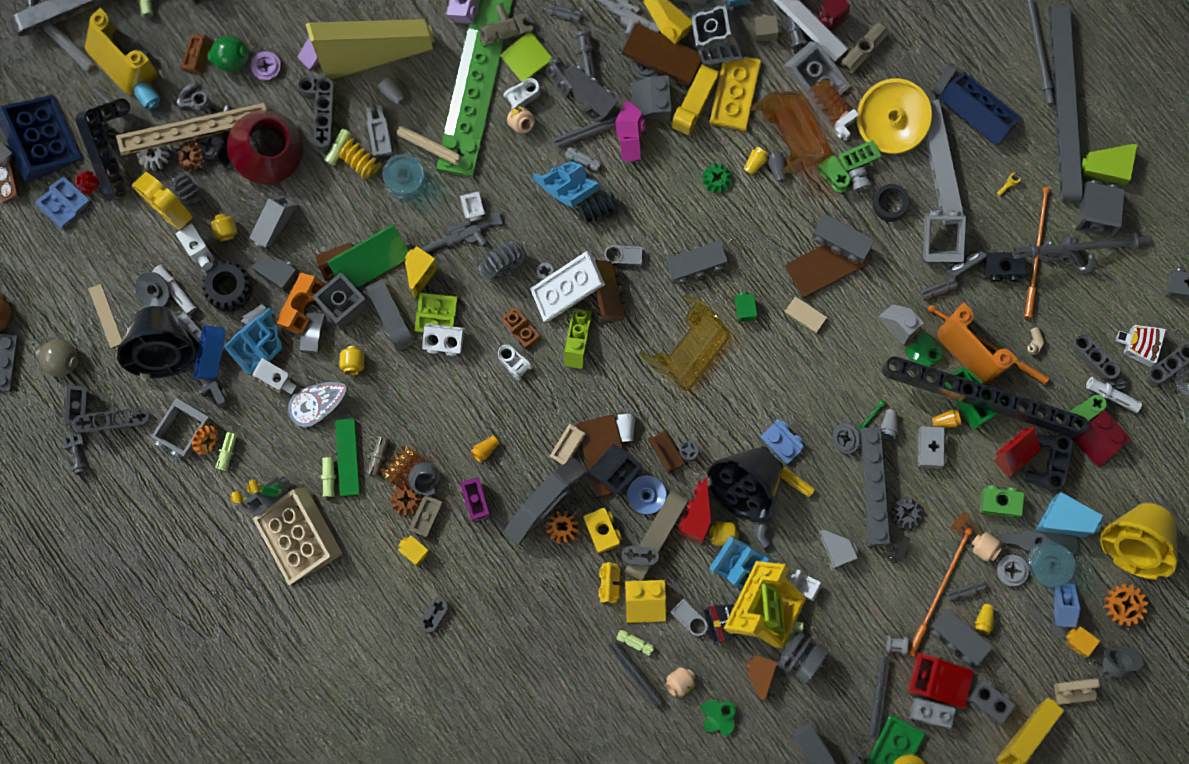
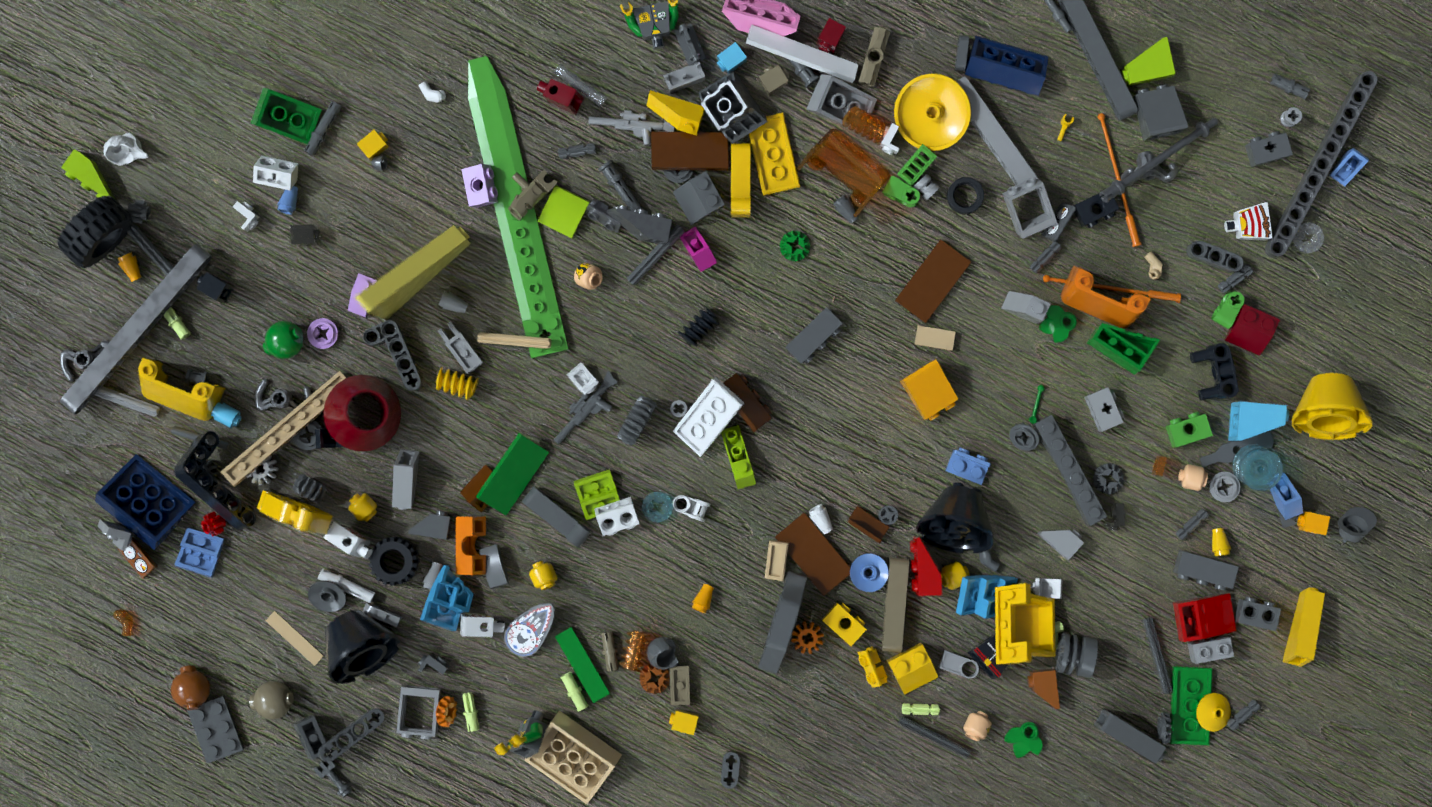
camera: 30 degrees left, 10 degrees up
(195, 156) = (301, 451): dark orange gear -> none
(197, 54) = (251, 351): dark orange slope -> none
(209, 353) = (410, 631): blue beam -> none
(337, 146) = (429, 380): yellowish green axle -> none
(340, 301) = (505, 526): dark grey slope -> none
(400, 167) = (495, 379): clear light blue wheel -> none
(420, 269) = (563, 464): yellow slope -> none
(475, 500) = (718, 651): magenta brick -> none
(489, 341) = (648, 506): none -> clear light blue gear
(520, 328) = (681, 472): dark orange slope -> none
(521, 94) = (576, 250): white piece -> none
(568, 183) = (660, 316): dark azure slope -> none
(583, 159) = (662, 285): light grey axle -> none
(616, 470) = (831, 565): black slope -> none
(629, 255) = (748, 357): light grey piece -> none
(630, 121) = (691, 232): dark pink slope -> none
(640, 551) = (892, 637): dark grey beam -> none
(695, 349) = (849, 419): clear yellow windscreen -> none
(745, 307) = (877, 357): green brick -> none
(756, 160) = (823, 212): yellow cone -> none
(773, 609) = (1032, 627): lime slope -> none
(778, 355) = (929, 390): none -> light orange slope
(797, 482) = (997, 496): yellow axle -> none
(842, 239) = (938, 253): dark grey brick -> none
(889, 426) = (1057, 406): light grey cone -> none
(896, 645) = (1152, 602): light grey bush -> none
(923, 627) = (1168, 575): orange piece -> none
(947, 420) = (1106, 376): light orange cone -> none
(994, 396) = (1142, 340): black beam -> none
(1018, 451) = (1184, 379): red slope -> none
(1076, 691) = (1327, 569): tan bracket -> none
(1108, 392) = (1239, 284): white pin -> none
(1133, 606) = (1337, 464): orange gear -> none

